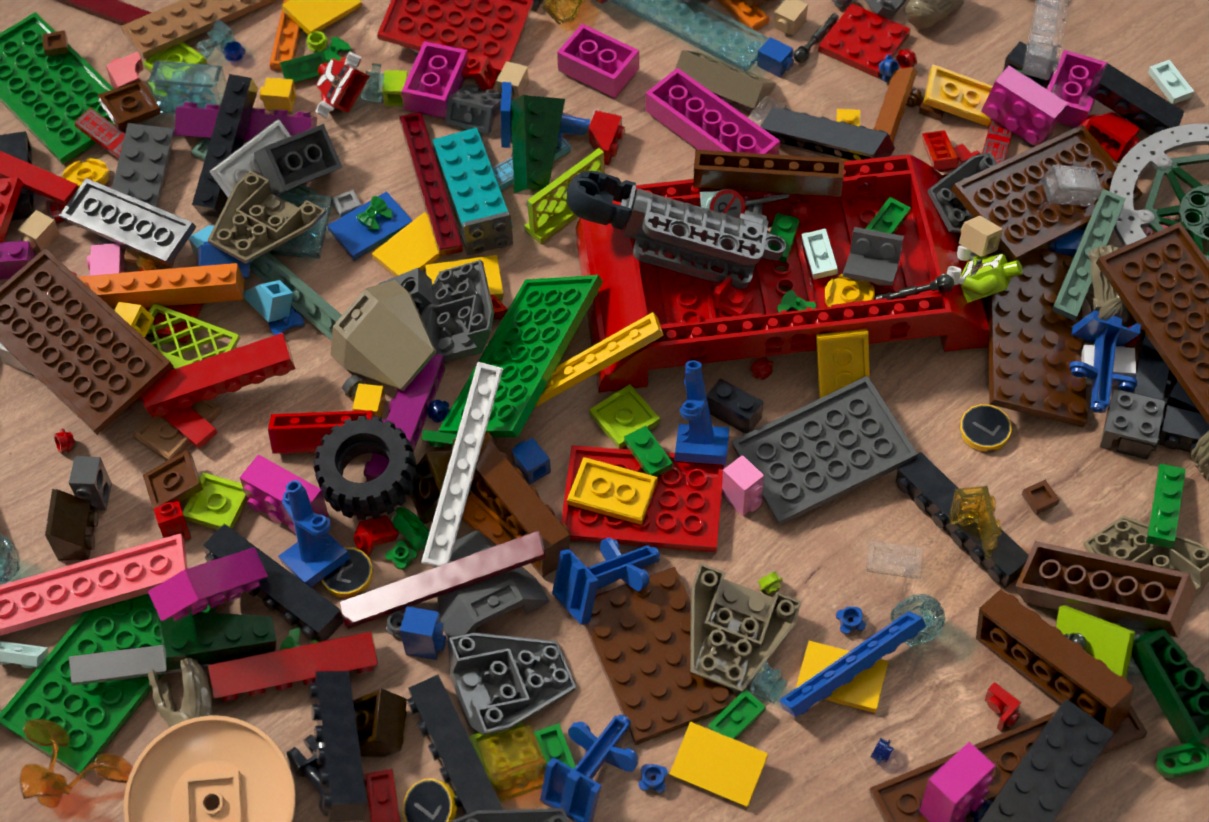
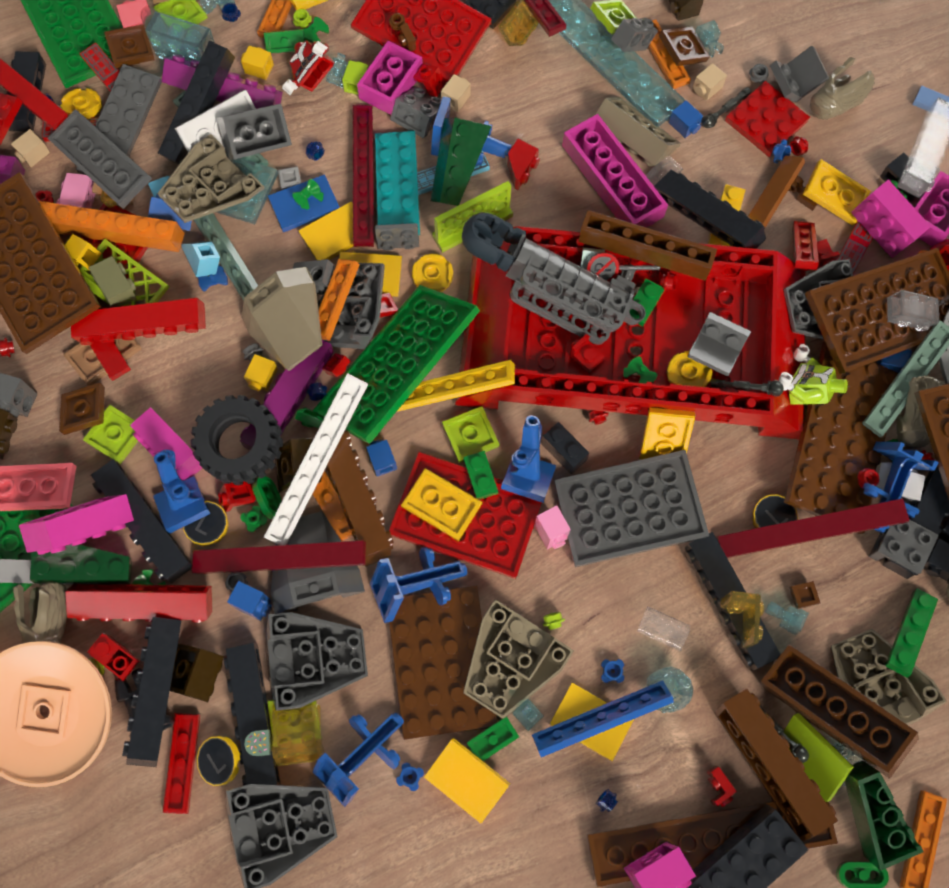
camera: 10 degrees right, 15 degrees up
(171, 520) = (72, 446): red bracket -> none
(177, 341) = (112, 282): none -> olive brick
(280, 725) = (113, 656): none -> red slope
(304, 431) = (204, 387): red brick -> none
(368, 170) = (315, 150): none -> clear blue plate
(437, 301) = (336, 296): none -> orange tile
(443, 32) = (406, 37): none -> reddish brown plate
(453, 378) = (336, 365): none -> red plate
(472, 772) = (258, 743): none -> sand green tile
(535, 263) = (432, 272): none -> yellow tile
(554, 745) = (334, 734): green plate -> none
(598, 60) = (532, 89): dark pink brick -> none
(819, 254) = (673, 326): light aqua plate -> none
(890, 217) = (742, 307): green plate -> none
(980, 236) = (819, 344): tan brick -> none
(1030, 423) = (814, 528): none -> dark red tile
(1033, 522) = (792, 618): none -> clear light blue piece
(1071, 357) = (868, 476): none -> red plate

